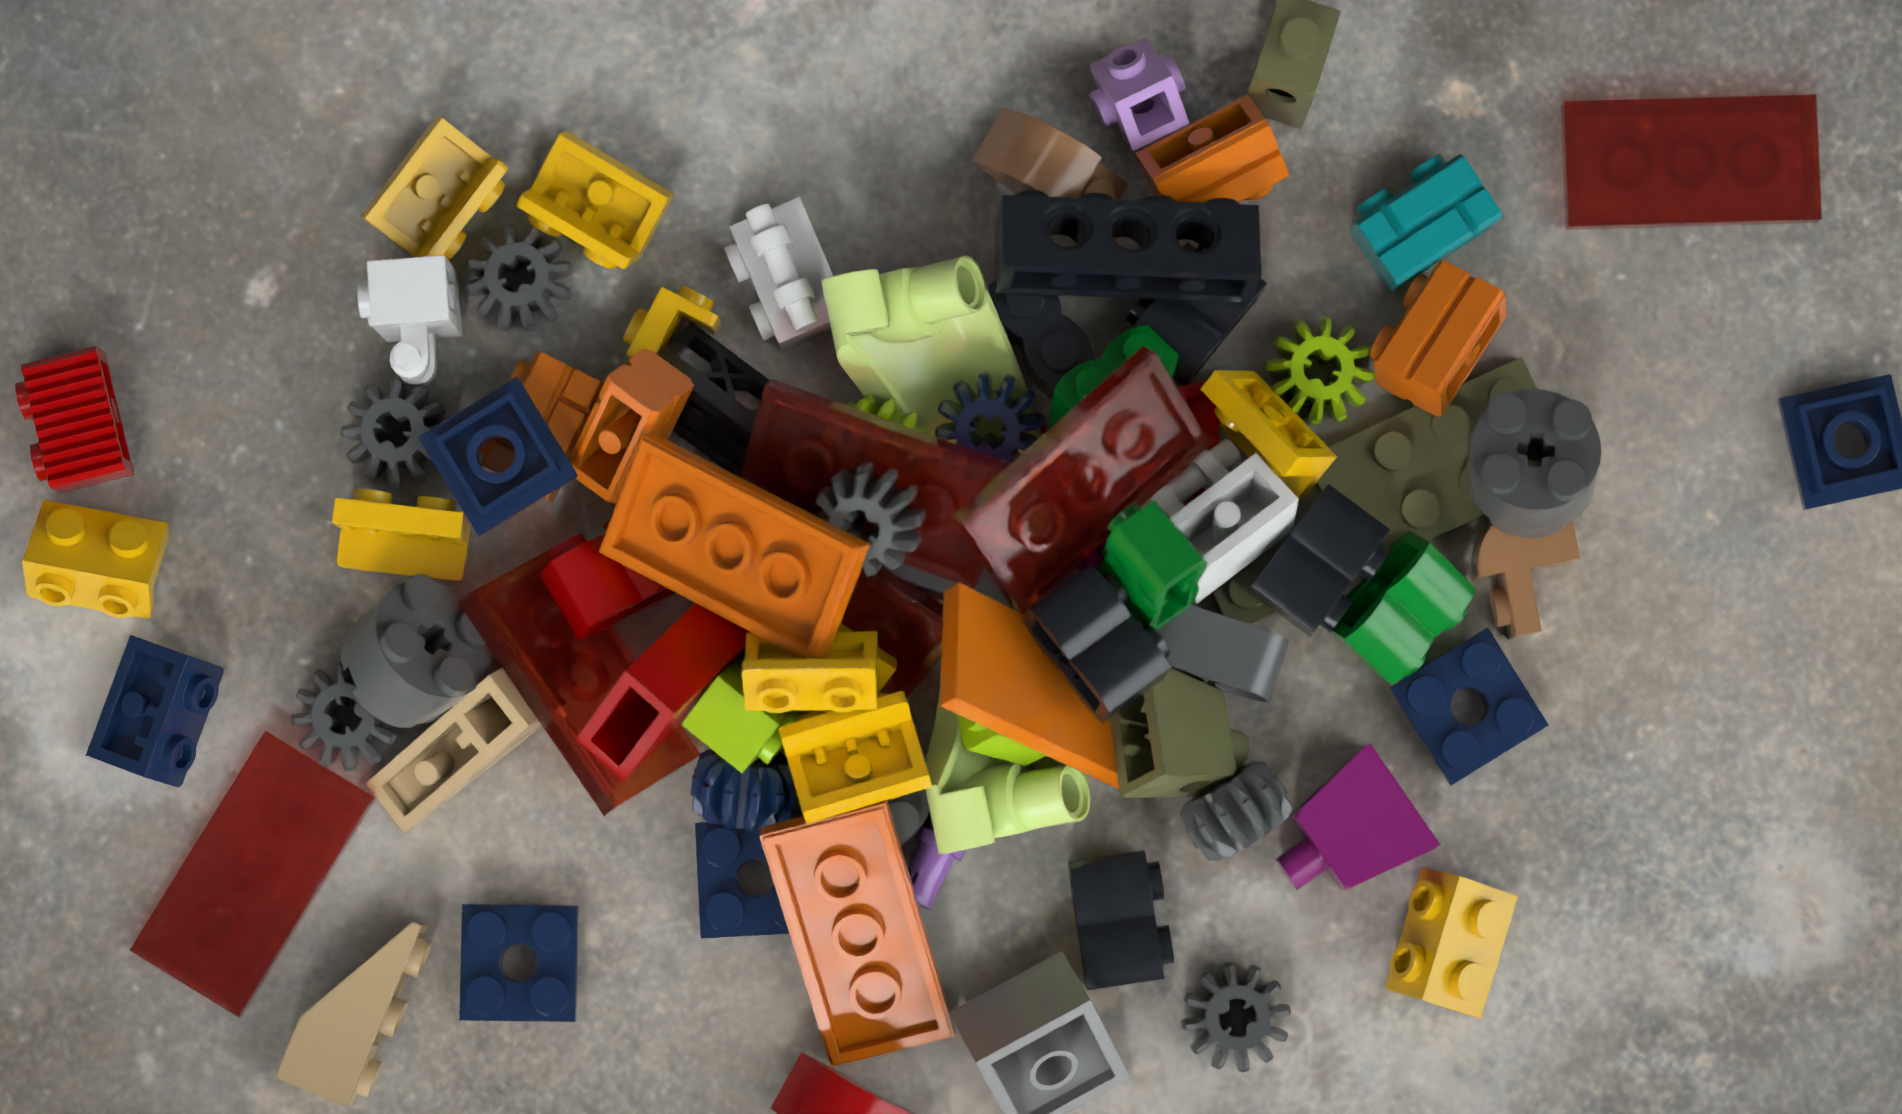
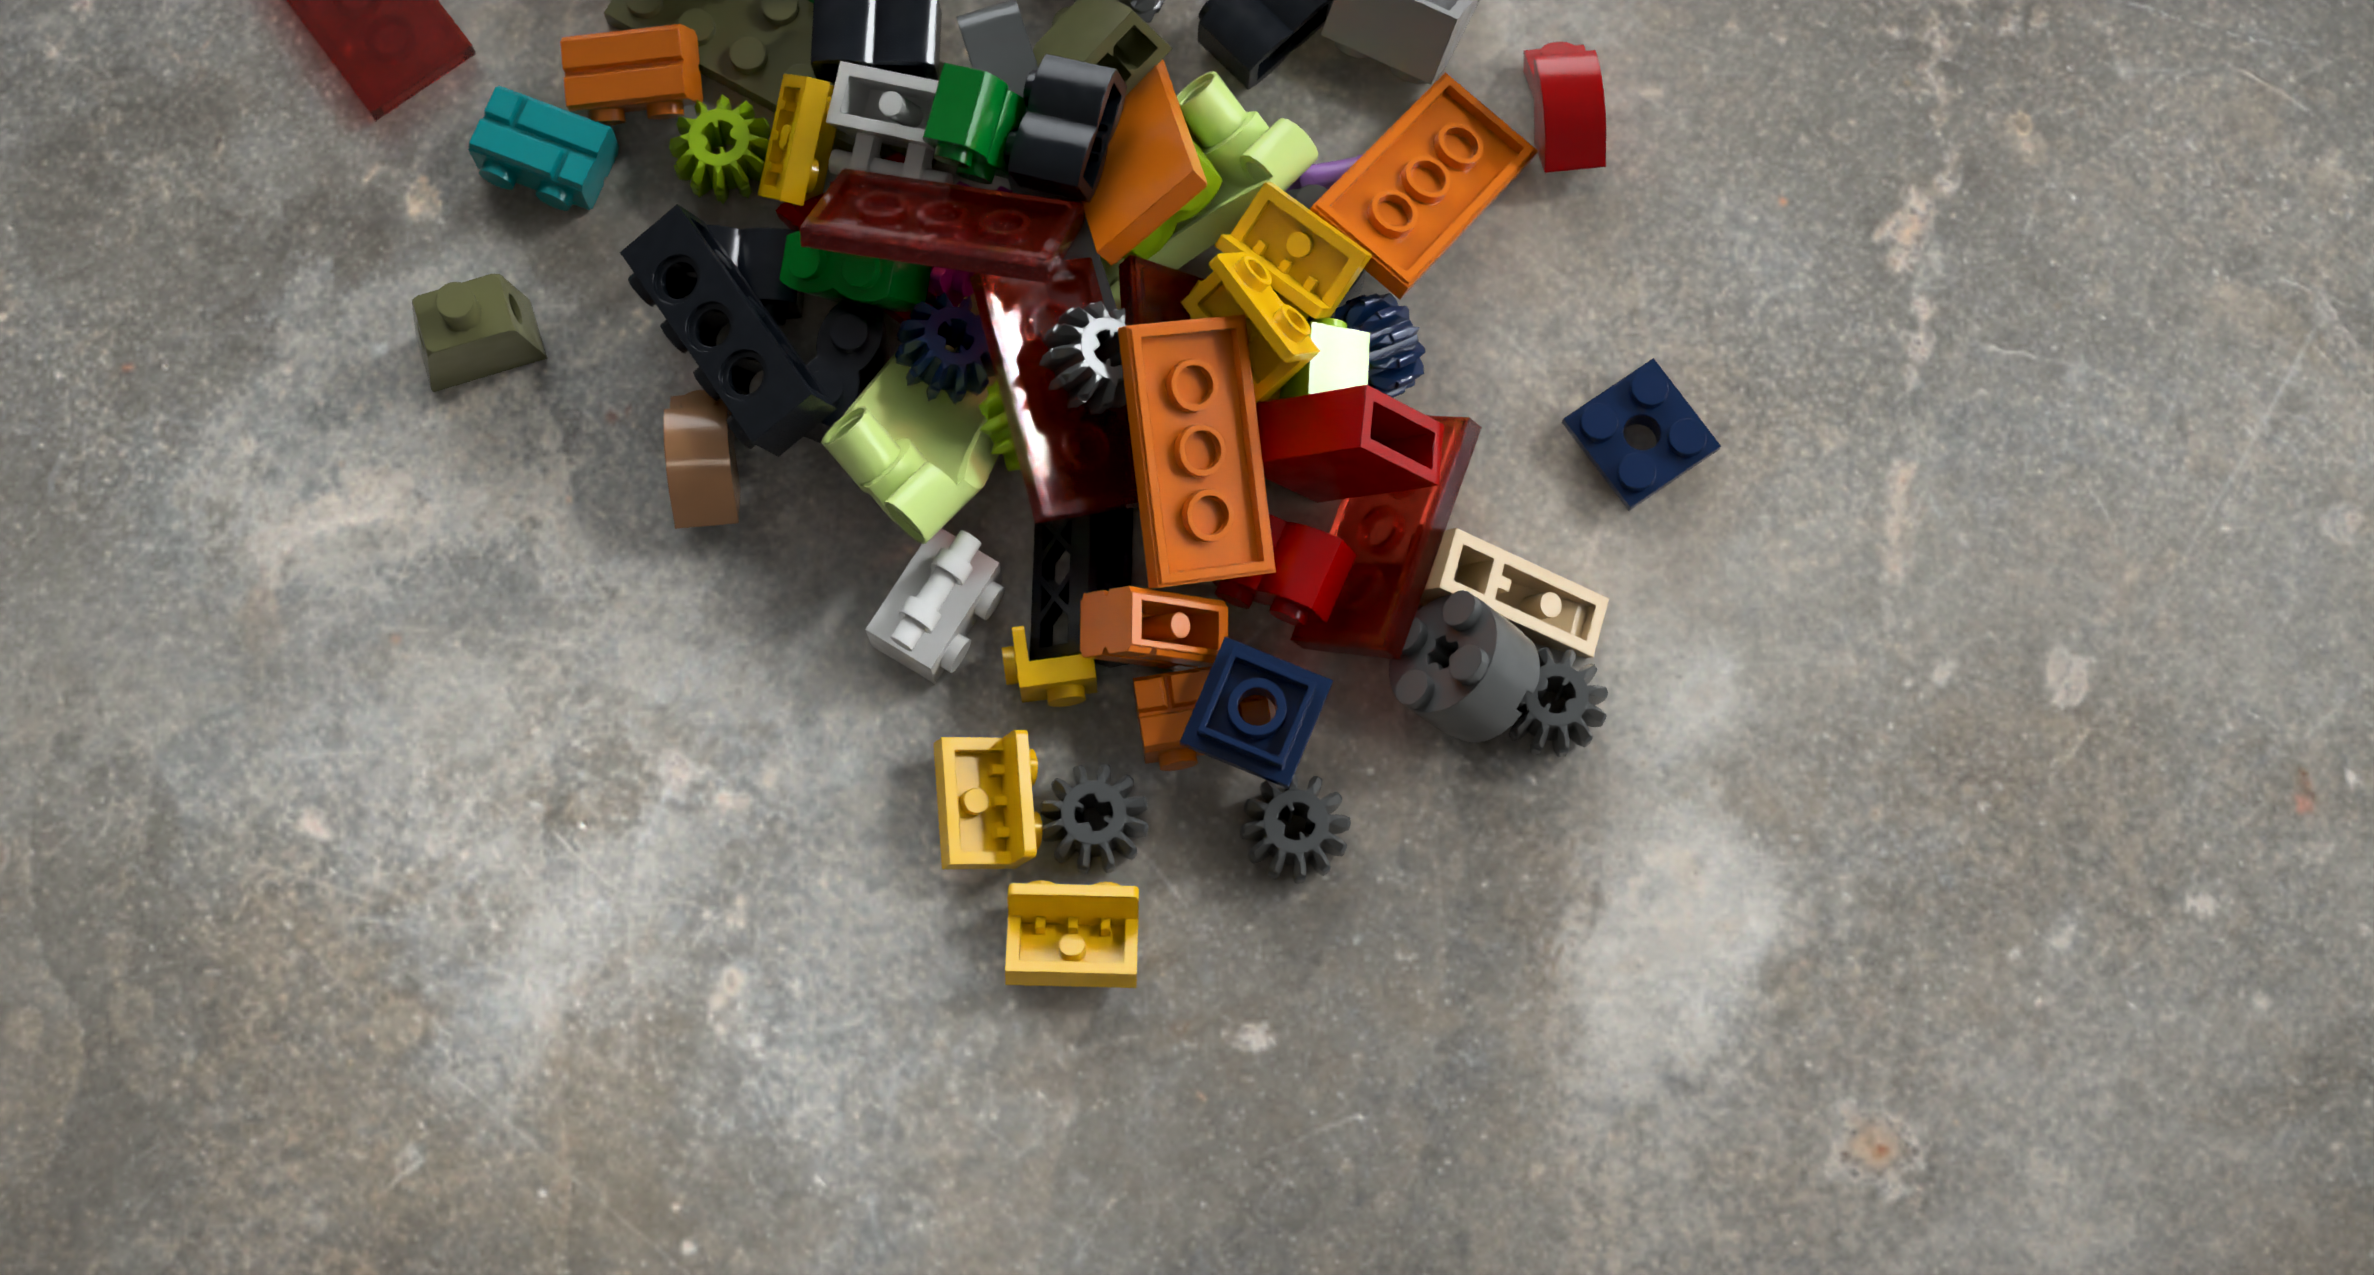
camera: 125 degrees left, 10 degrees down
(74, 420) = (1480, 1100): red brick -> none
(94, 559) = (1580, 1001): yellow bracket -> none
(155, 712) = (1667, 861): dark blue bracket -> none
(253, 874) = (1731, 694): clear red tile -> none
(341, 1033) = (1791, 529): tan slope -> none
(400, 537) = (1377, 759): yellow bracket -> none
(412, 305) = (1182, 875): white brick -> none
(722, 903) = (1476, 304): dark blue piece -> none
(1138, 93) = (589, 427): lavender brick -> none
(1216, 157) = (605, 333): orange brick -> none

